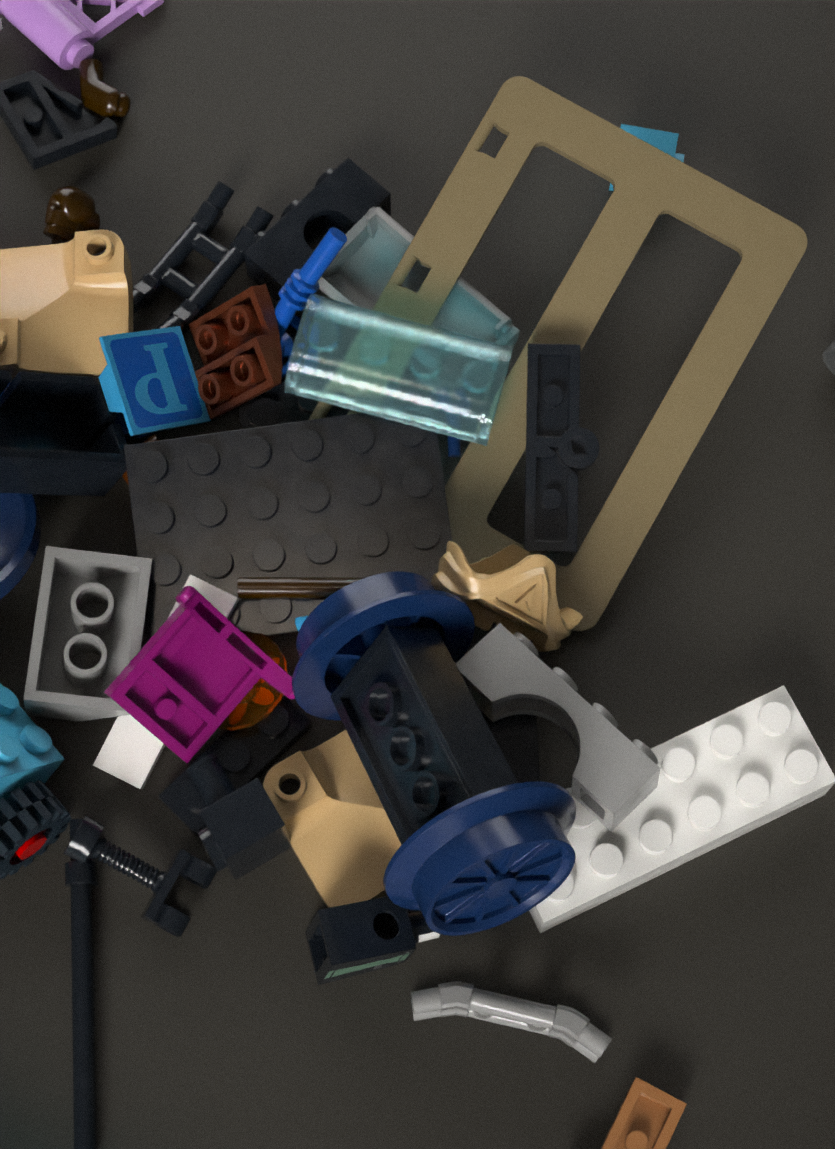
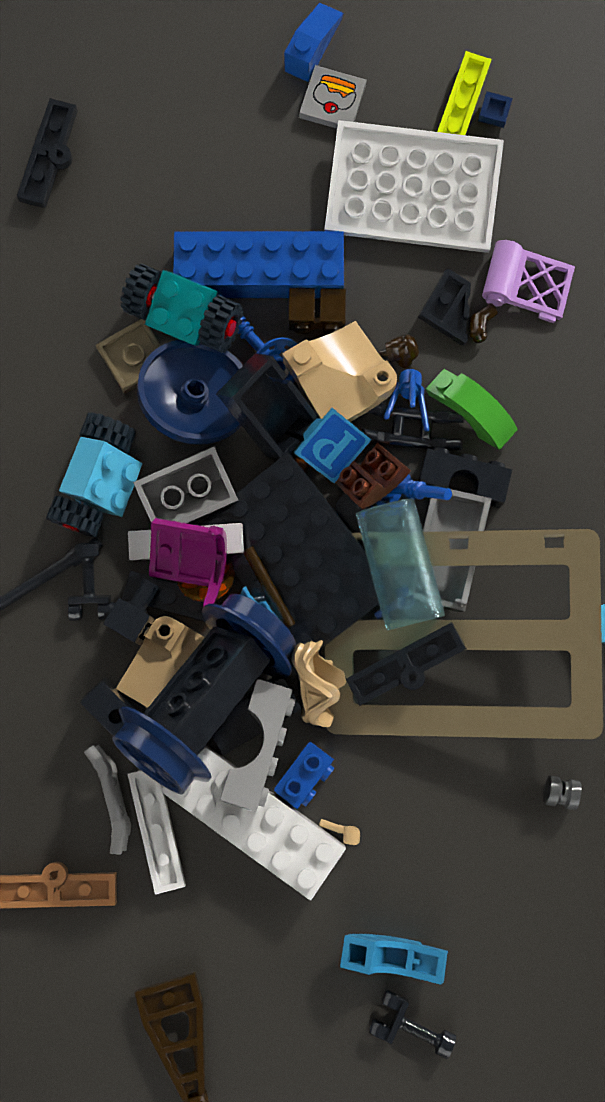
camera: 60 degrees right, 10 degrees up
(138, 235) = (410, 388): none -> blue plant
(219, 154) = (475, 405): none -> bright green arch
(600, 974) = (156, 833): none -> white plate
(638, 691) = (303, 775): none -> blue bracket
(762, 680) = (351, 834): none -> tan hand

